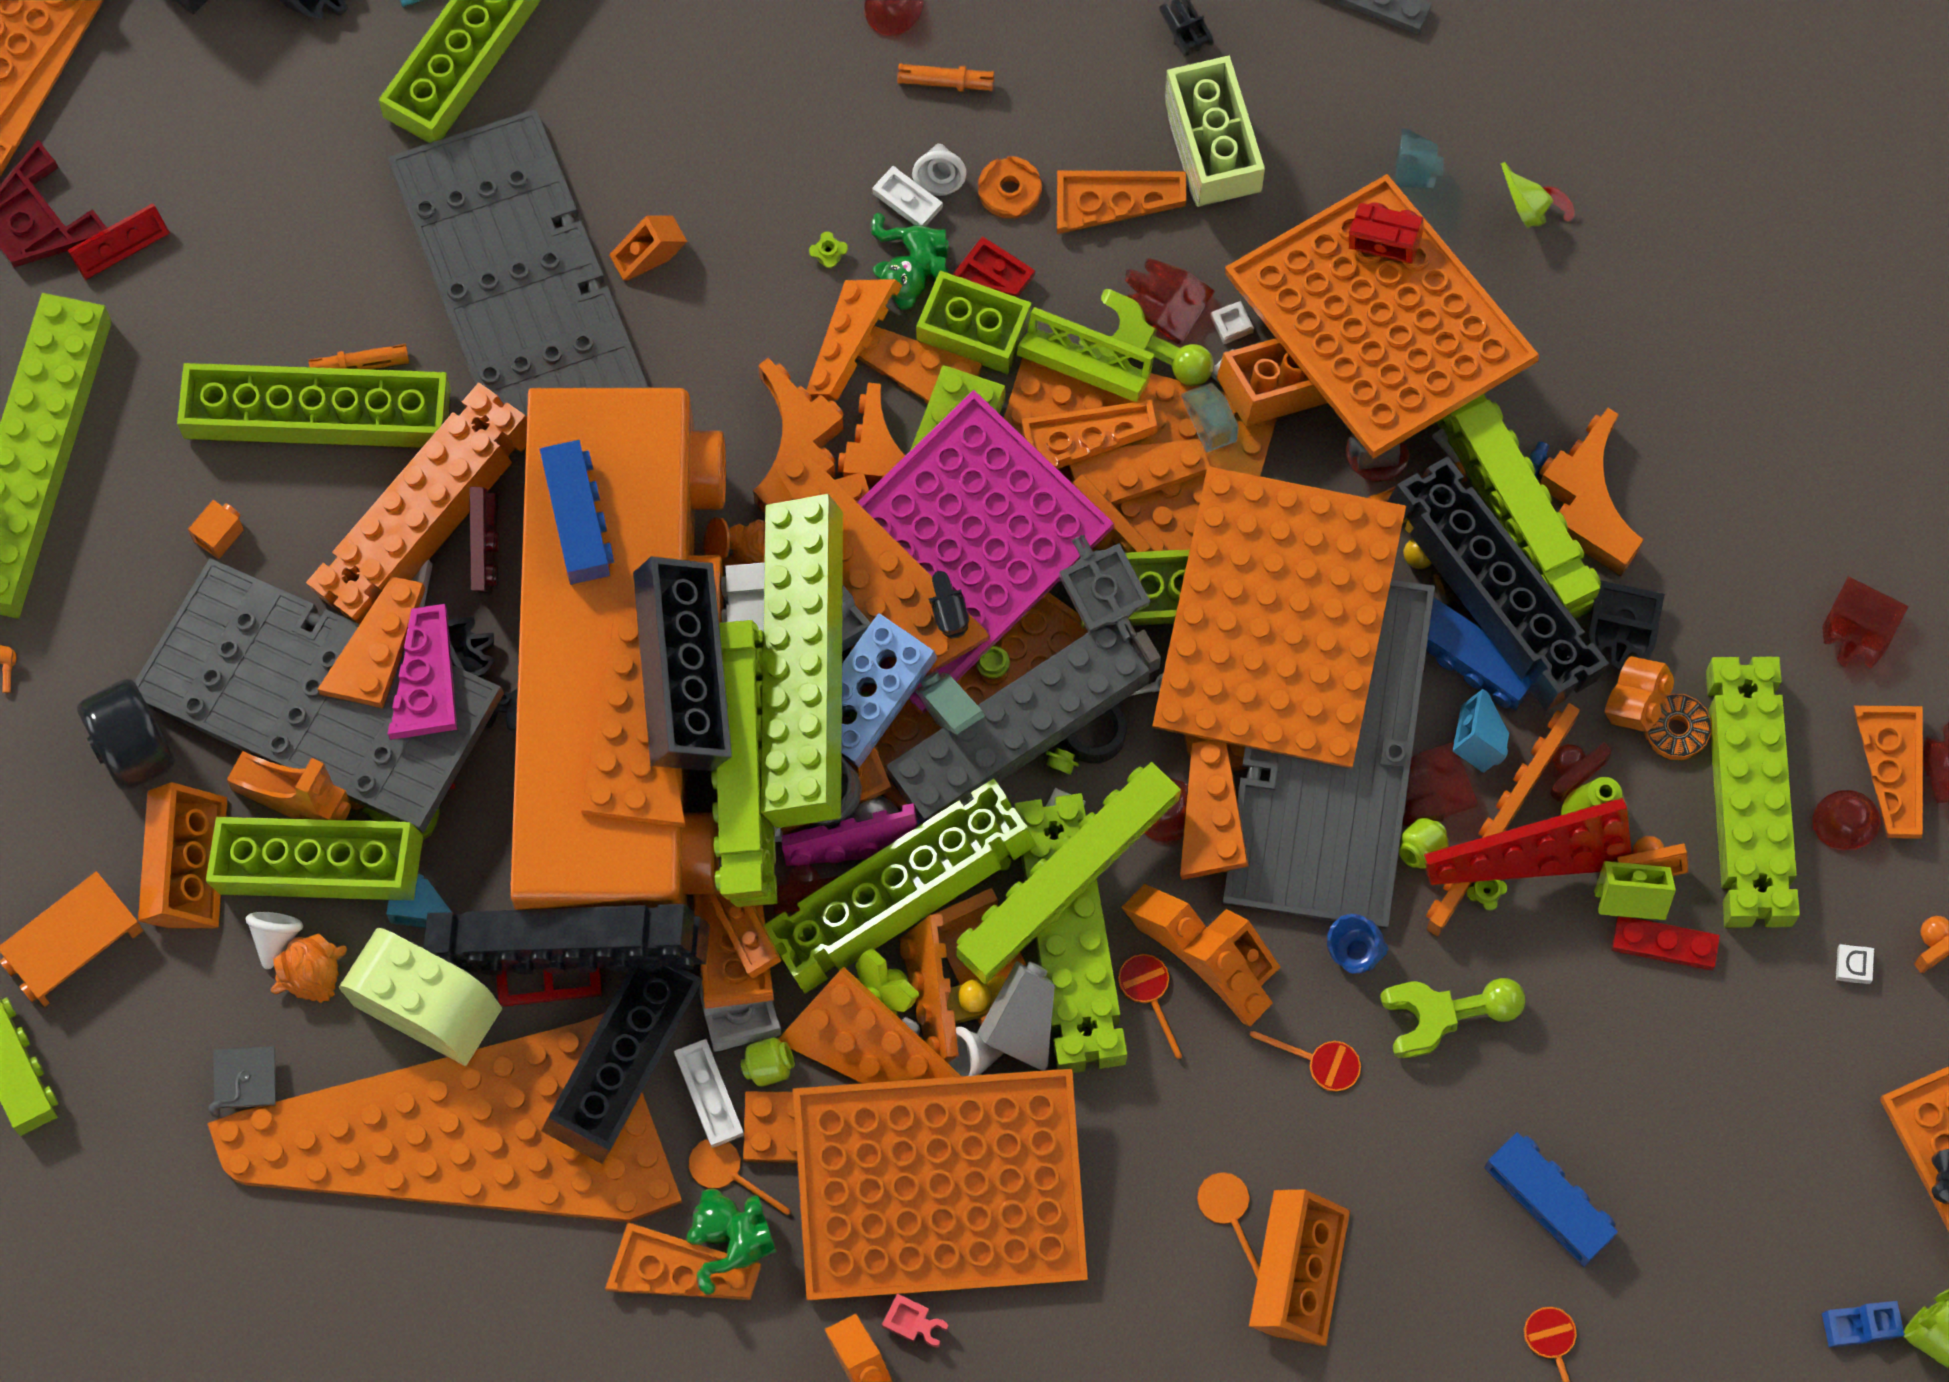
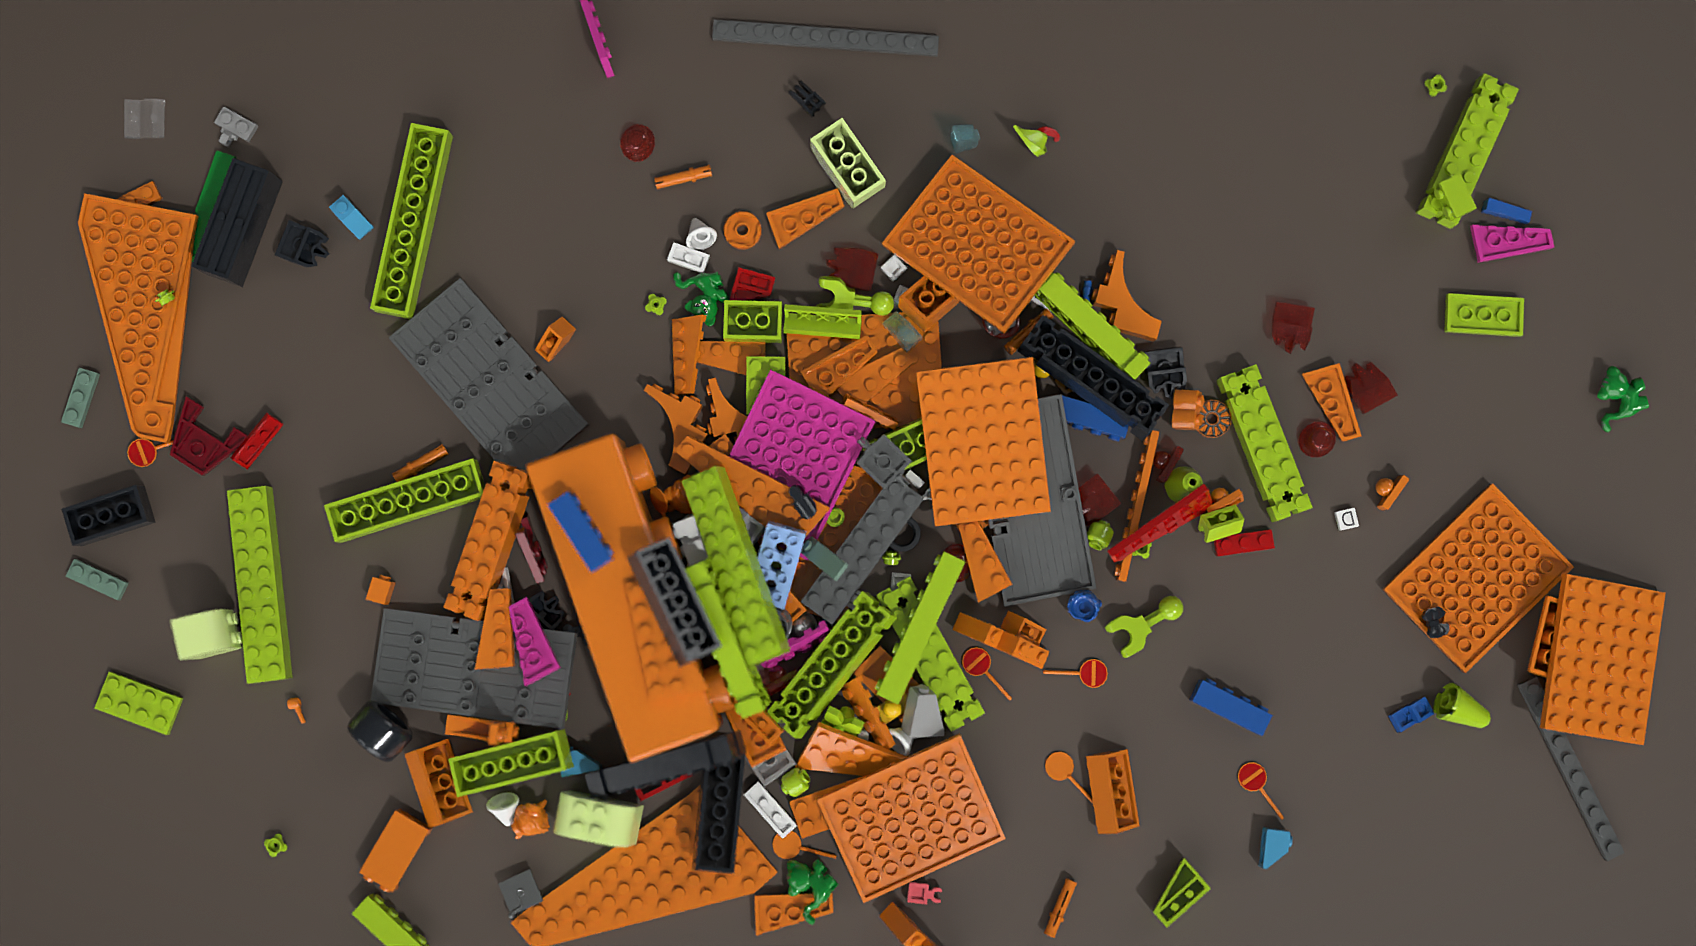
camera: 25 degrees left, 15 degrees up
(1386, 232) = (965, 194): red brick -> none
(1481, 733) = (1109, 462): dark azure slope -> none

